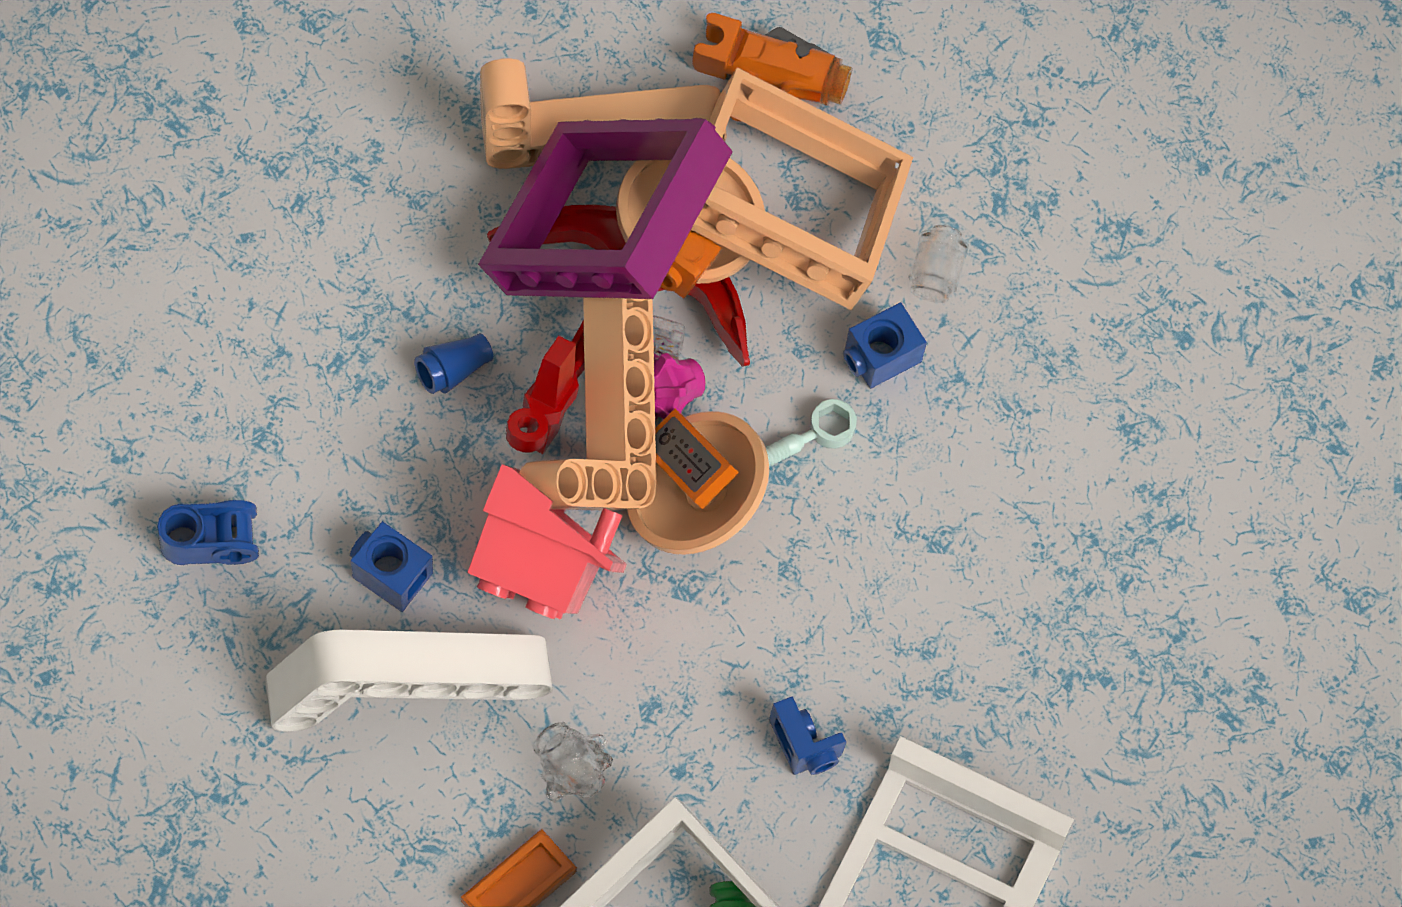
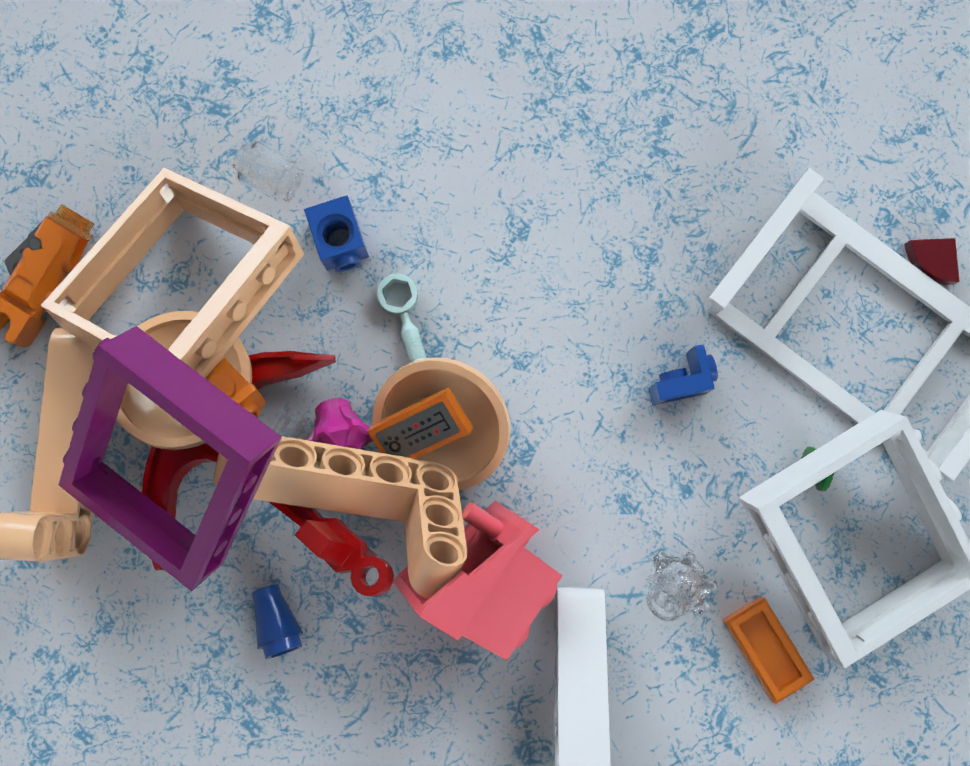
camera: 75 degrees left, 15 degrees up
(396, 586) = (469, 695): blue brick -> none

